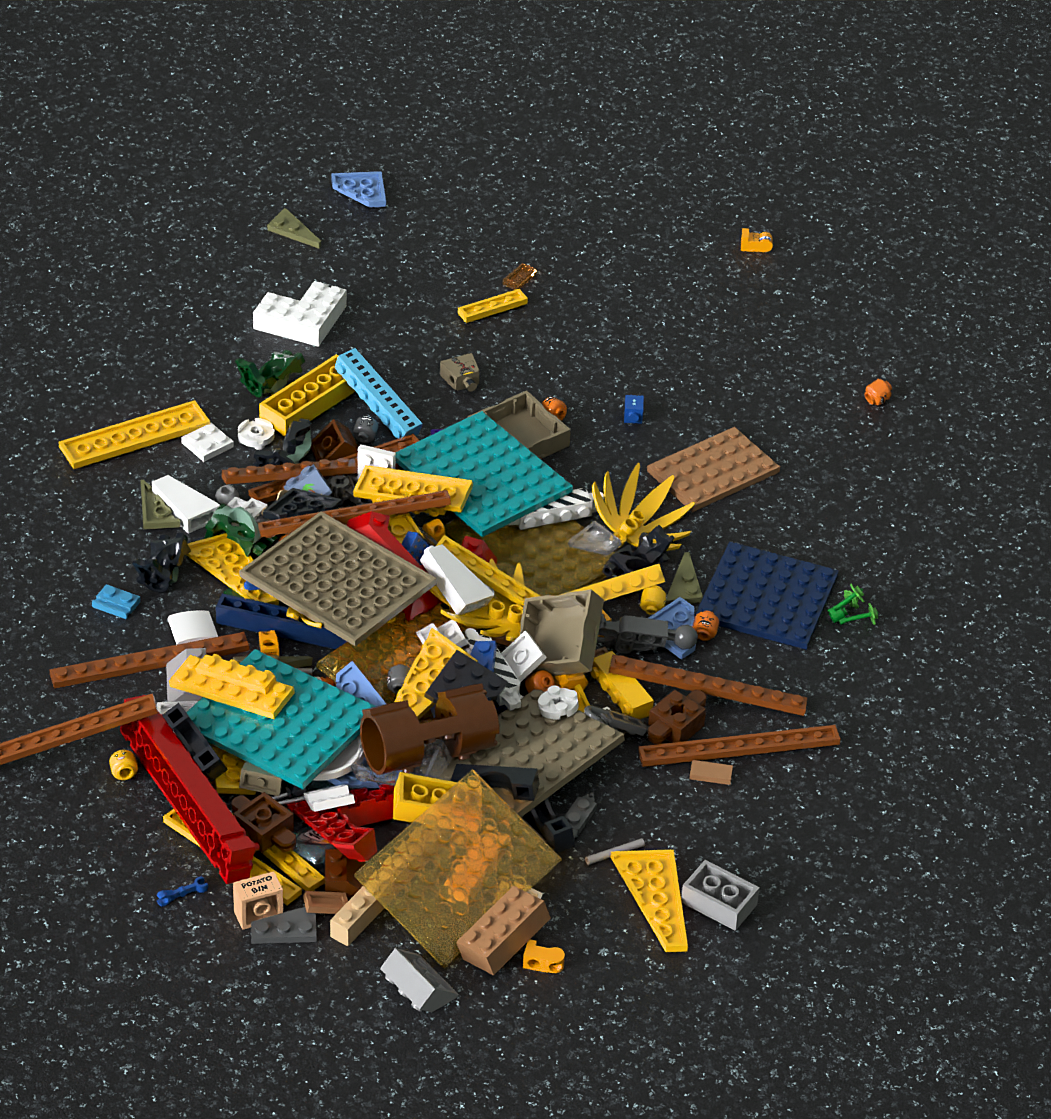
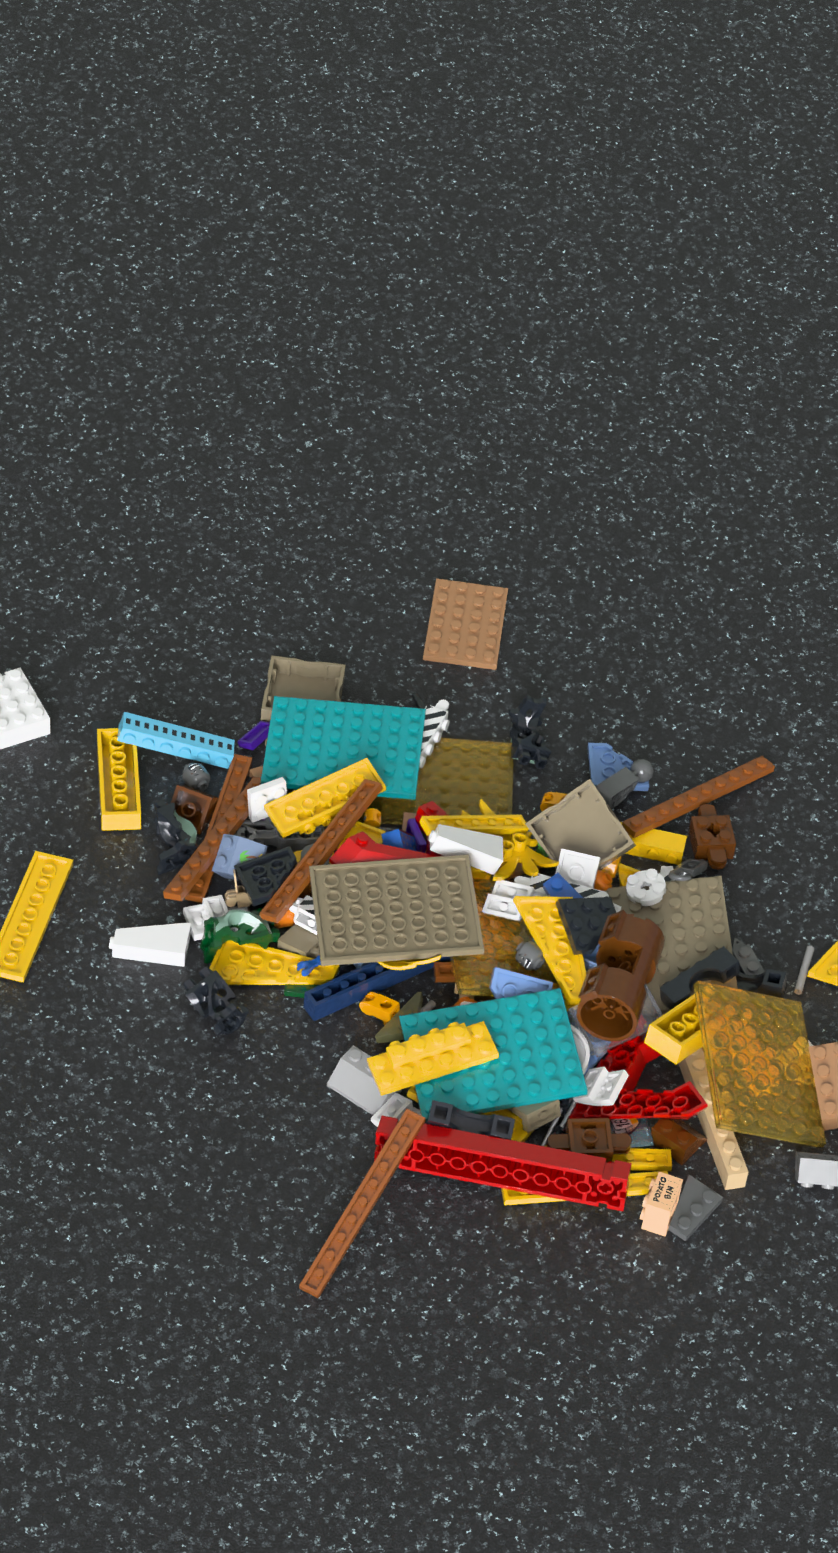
camera: 50 degrees left, 5 degrees up
(116, 601) = (218, 1064): dark azure plate -> none
(123, 765) = (421, 1185): yellow head -> none
(143, 660) = (309, 1092): dark orange plate -> none
(154, 510) = (136, 966): olive wing -> none
(167, 896) = (589, 1262): blue piece -> none
(192, 626) = (306, 1038): white slope -> none
(207, 442) = (90, 879): white plate -> none
(226, 494) = (170, 912): light grey plate -> none
(248, 433) = (117, 851): white plate -> none
(272, 375) = (59, 785): dark green hips -> none
(324, 901) = (695, 1167): medium nougat tile -> none
(460, 372) = (194, 676): dark tan torso -> none
(492, 305) = (134, 602): yellow plate -> none
(519, 276) = (114, 562): clear orange tile -> none
(555, 407) = (303, 653): orange head -> none
(595, 539) = (482, 741): clear wing -> none
(627, 583) = (543, 774): yellow plate -> none
(631, 526) = (474, 707): yellow plant -> none
(633, 409) = (353, 615): blue brick -> none
(653, 599) = (574, 759): yellow head -> none
(685, 583) = (571, 730): olive wing -> none
(706, 625) = (632, 749): orange head -> none
(711, 772) = (779, 861): medium nougat tile -> none
(738, 745) = (771, 827): dark orange plate -> none
(756, 242) = (242, 411): light orange leg -> none
(768, 594) = (632, 697): dark blue plate -> none
(839, 612) = (696, 674): plant -> none
(878, 392) = (491, 478): orange head -> none

